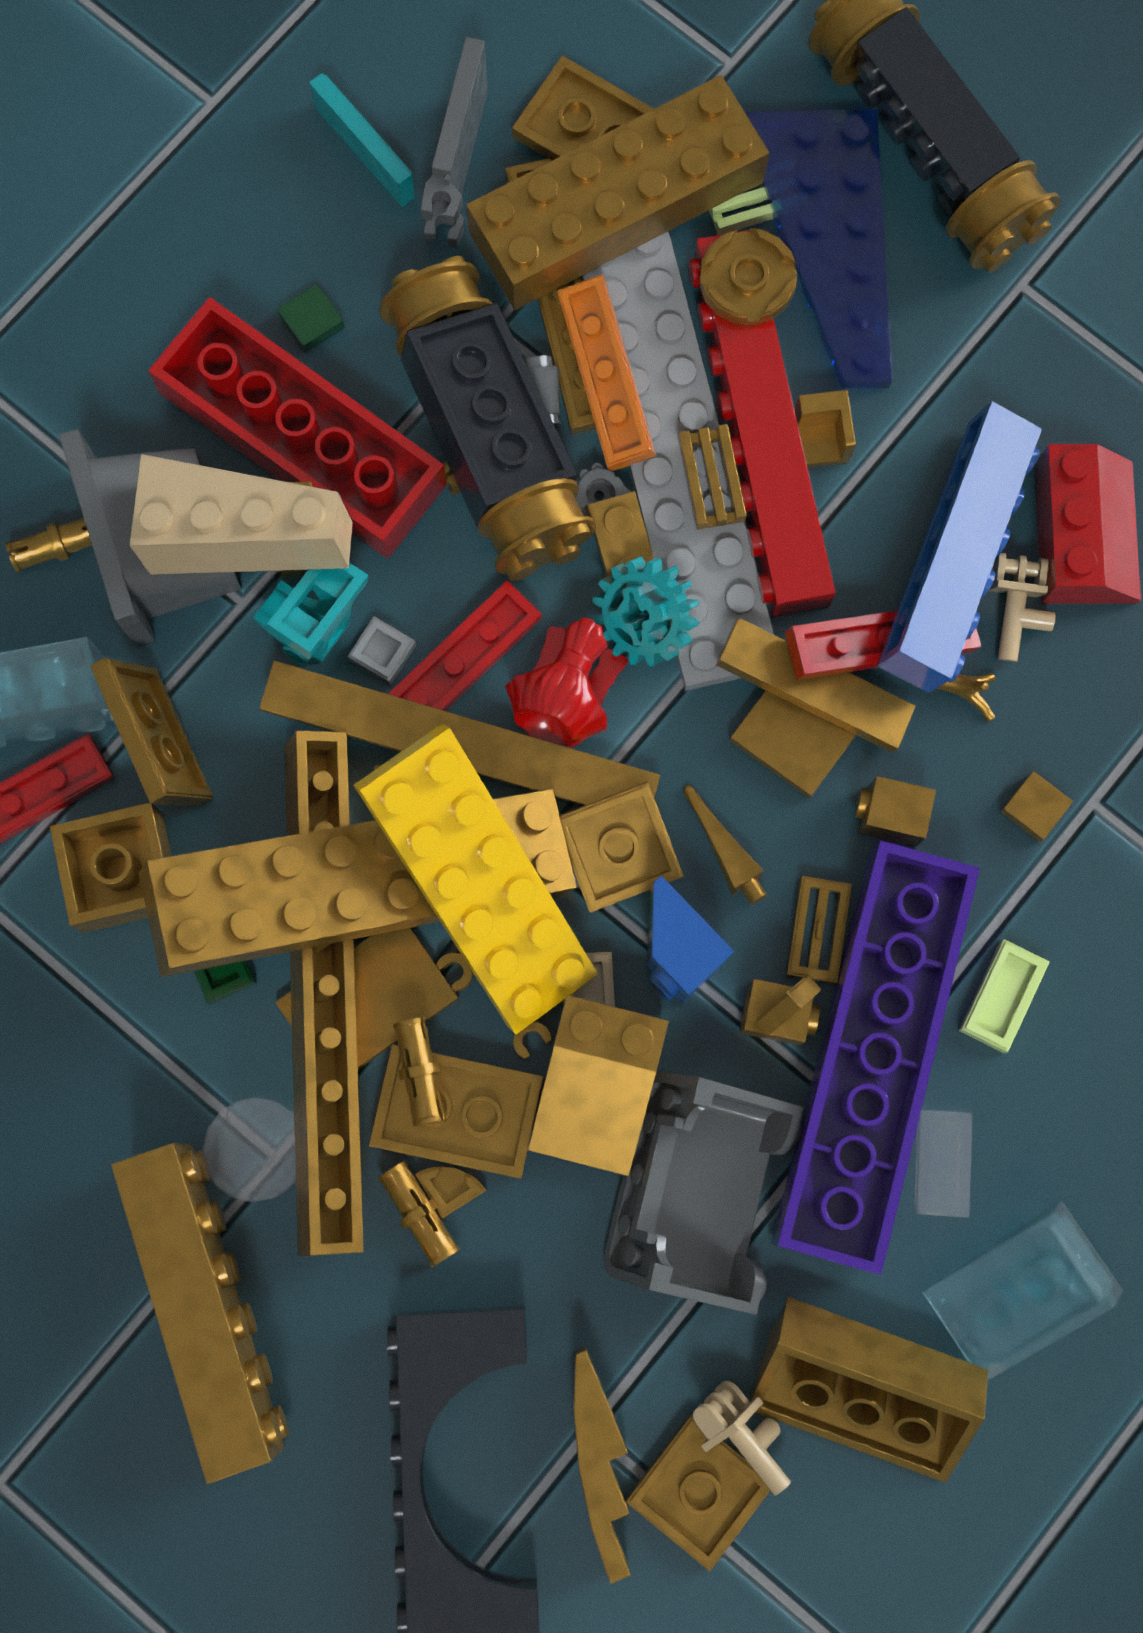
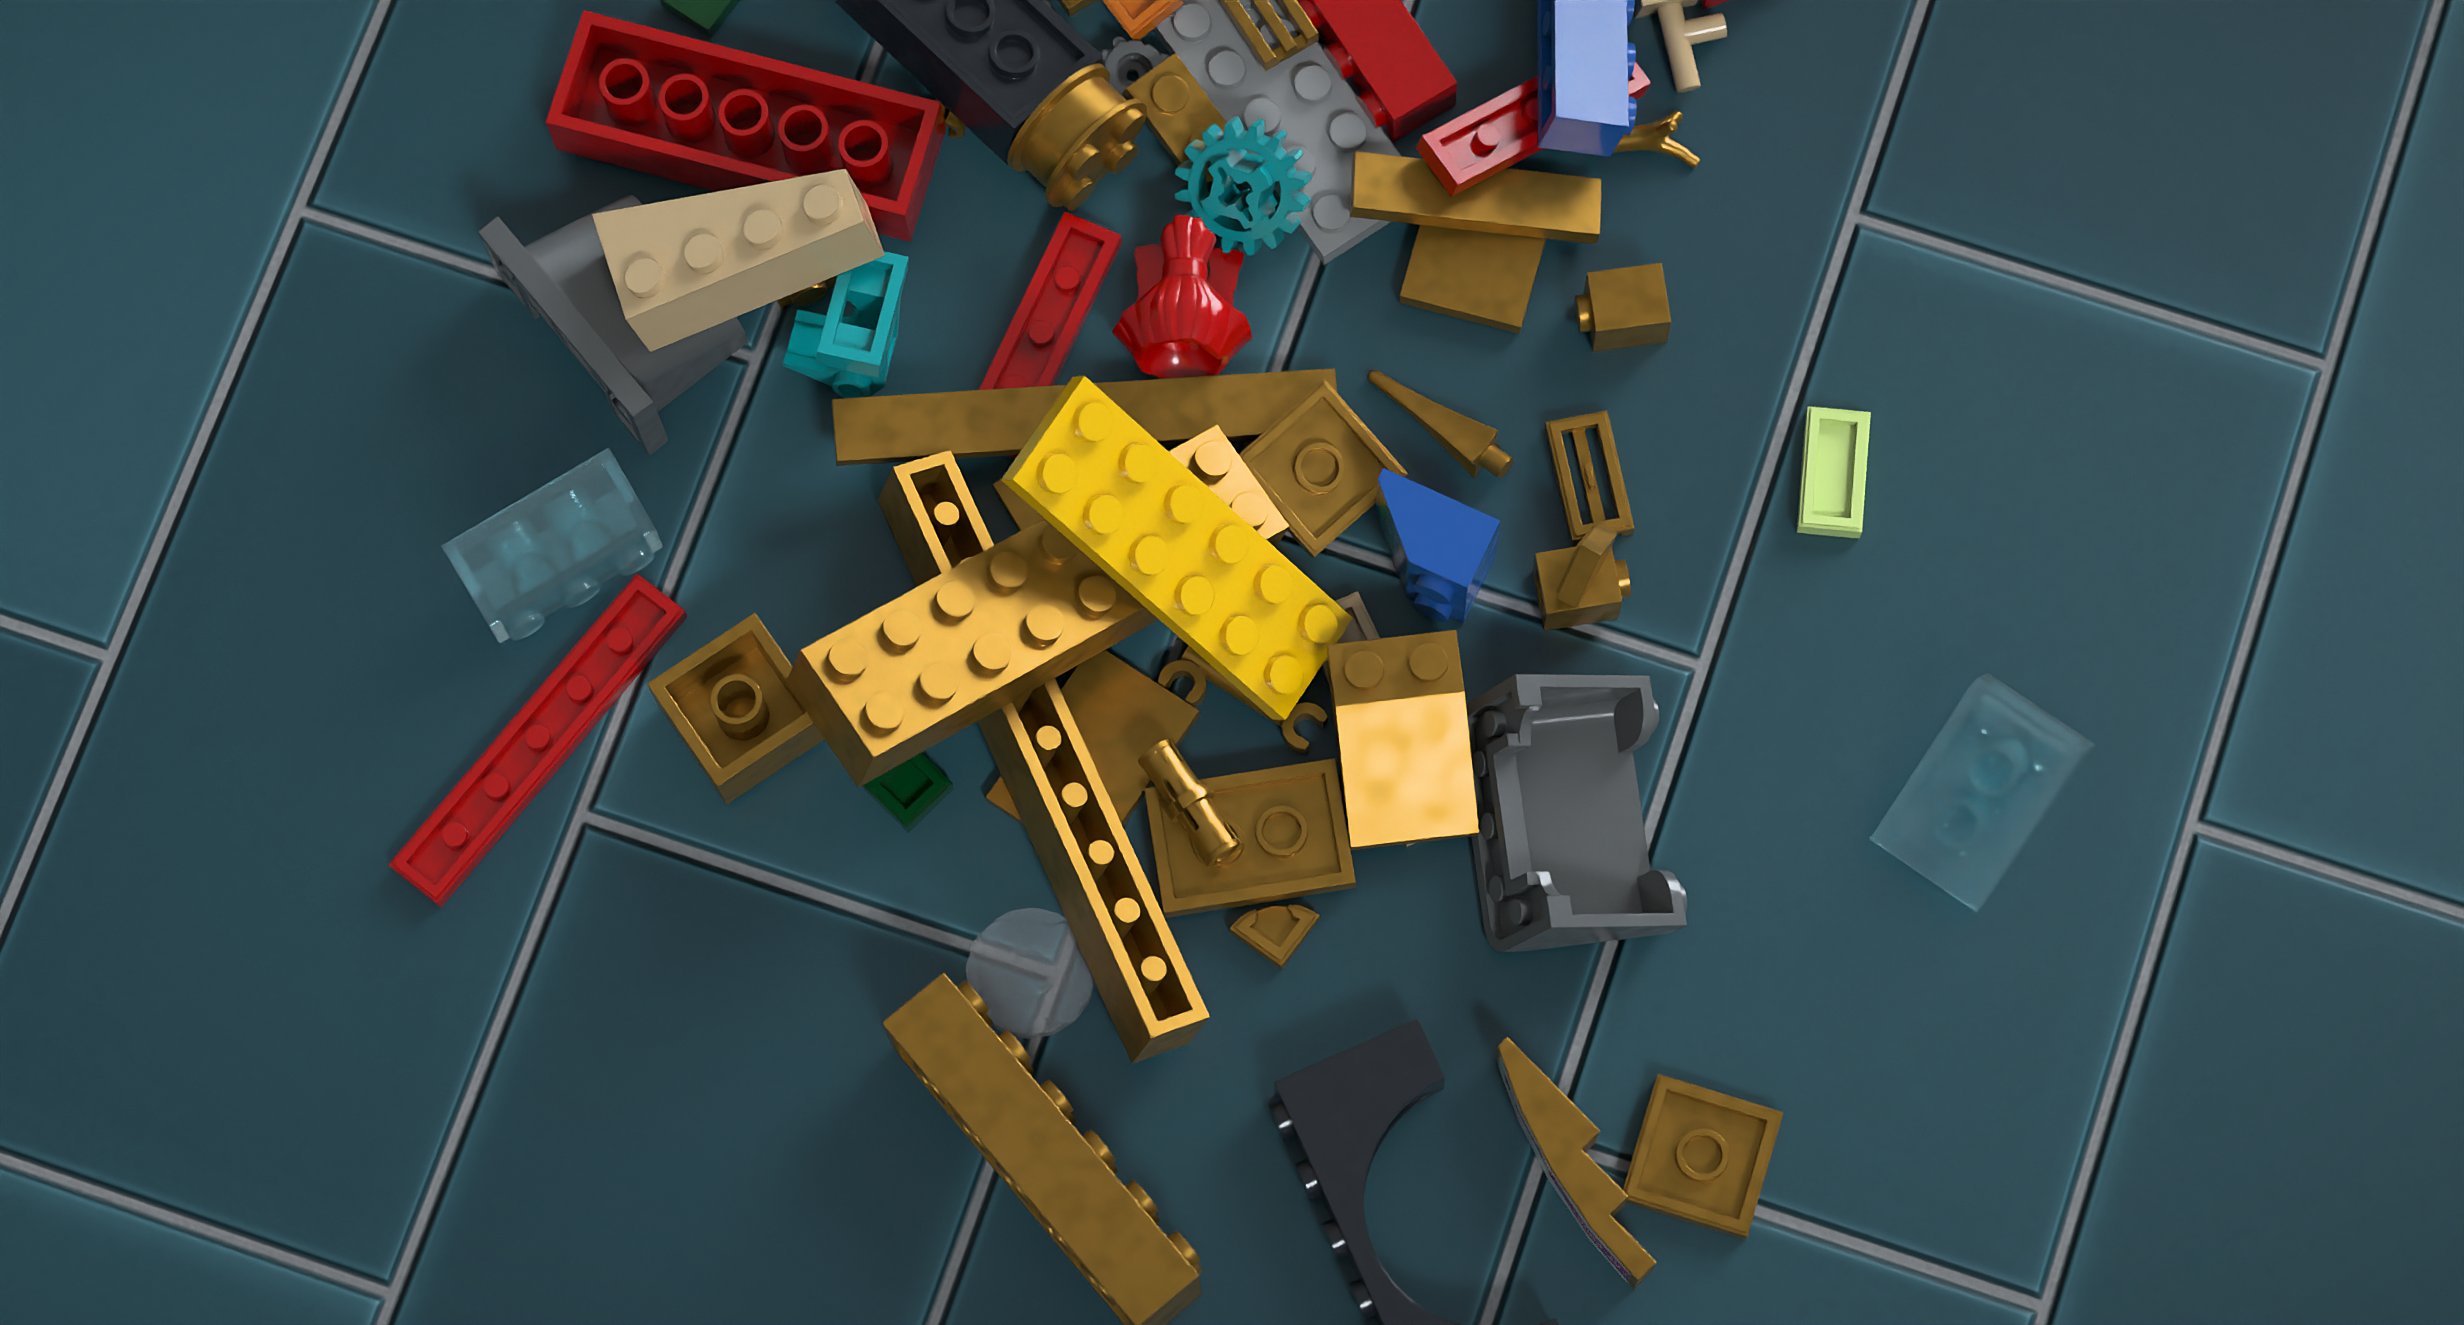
camera: 15 degrees left, 5 degrees down
(49, 544) = (504, 367): pearl gold pin -> none
(152, 733) = (721, 537): pearl gold tile -> none
(382, 650) = (947, 350): light grey tile -> none
(418, 1213) = (1251, 970): pearl gold pin -> none
(725, 1416) = (1695, 1052): tan arm -> none
(870, 1390) = (1848, 966): pearl gold slope -> none
(876, 1057) = (1710, 590): dark purple brick -> none
(943, 1164) = (1836, 686): clear tile -> none
(1036, 806) = (1787, 243): pearl gold tile -> none

